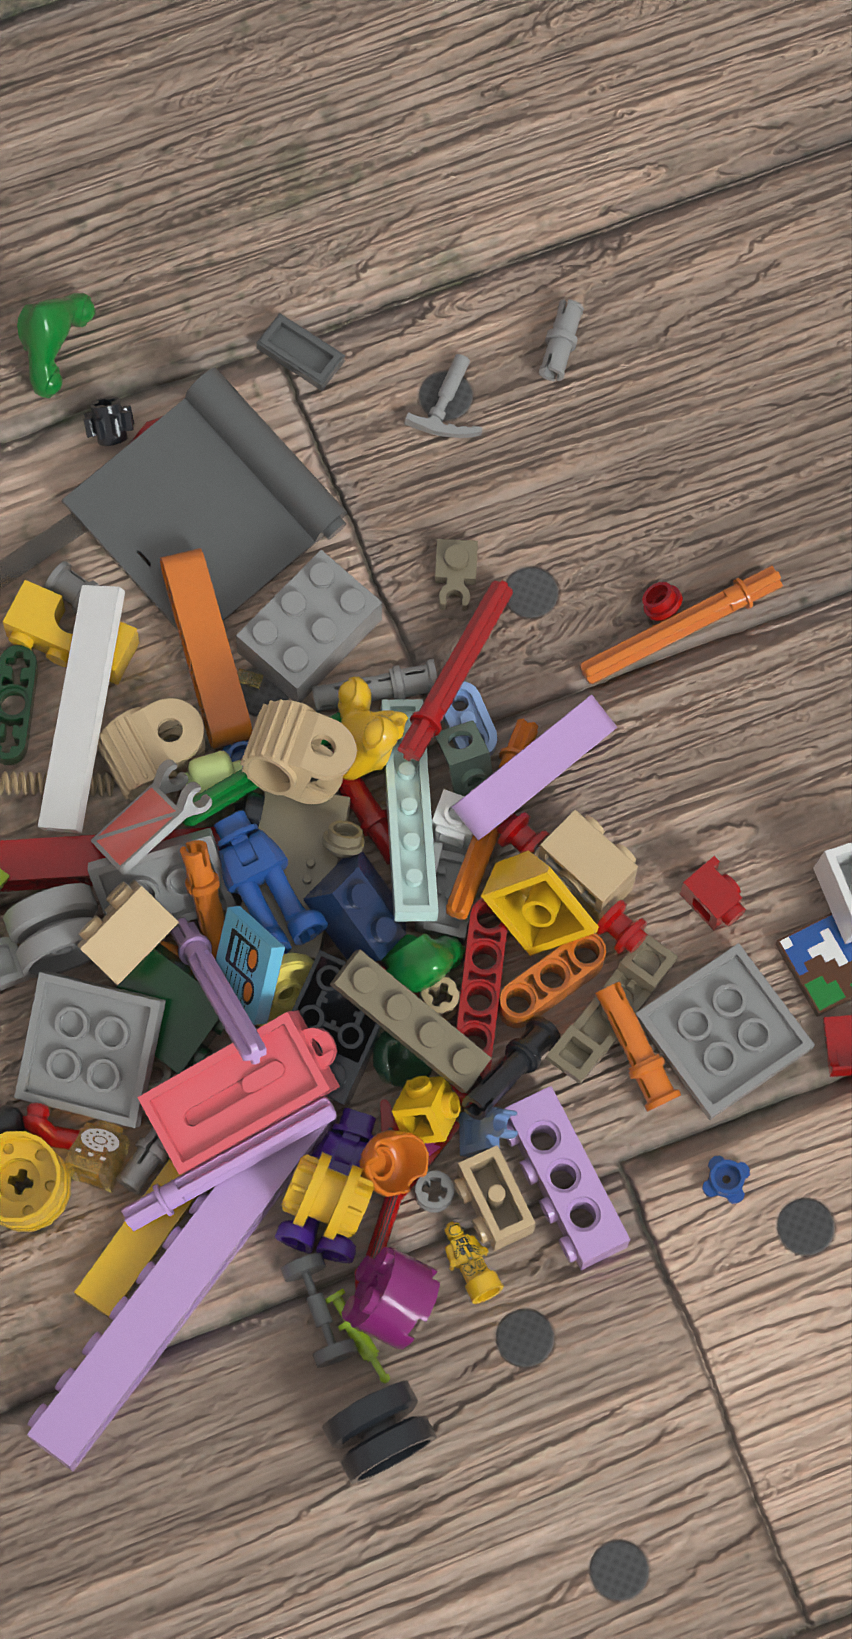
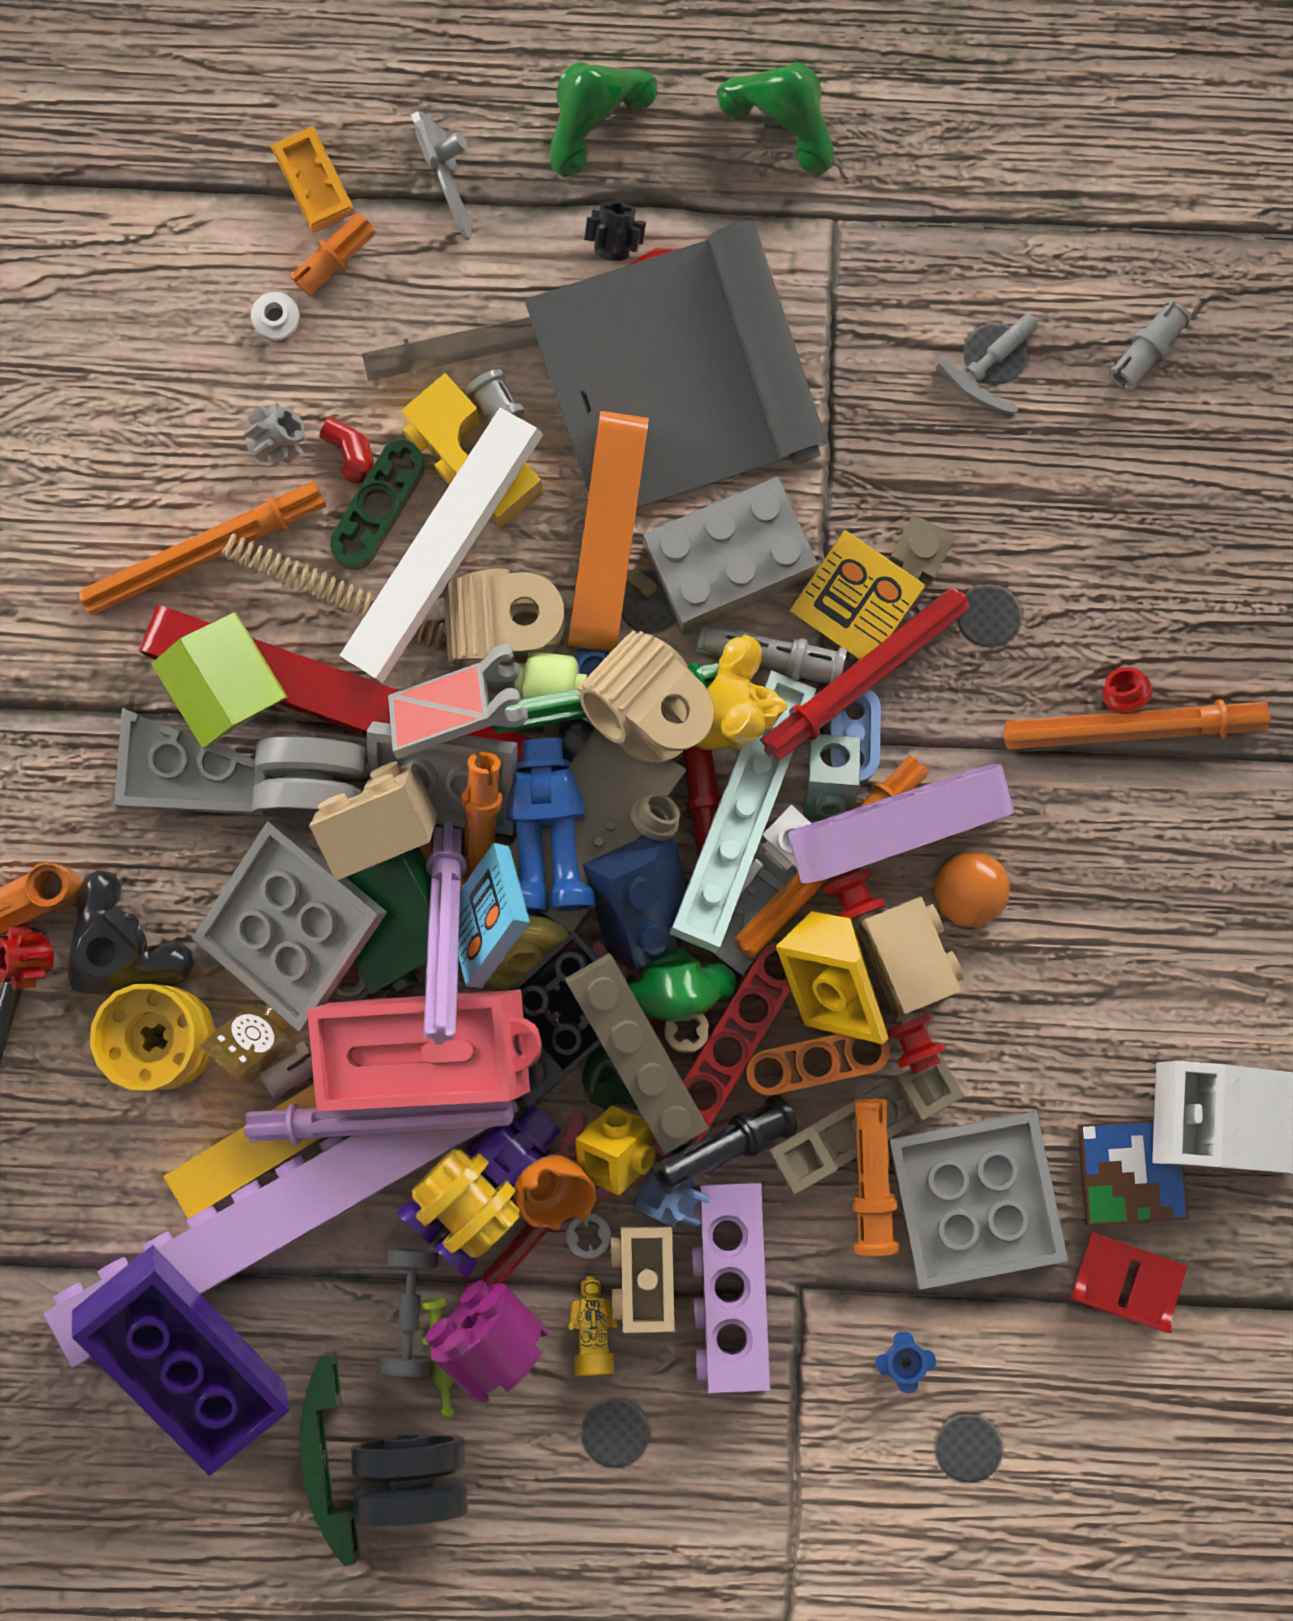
camera: 25 degrees right, 10 degrees up
(37, 1123) = (211, 992): red arm -> none
(156, 1415) = (179, 1360): none -> dark purple brick
(203, 269) = (791, 100): none -> green head
(300, 351) = (859, 238): dark grey tile -> none
(336, 1498) = (335, 1523): none -> dark green slope
(422, 616) = (857, 596): none -> yellow tile
(612, 799) = (972, 889): none -> orange hair
(713, 895) = (1034, 1046): red brick -> none

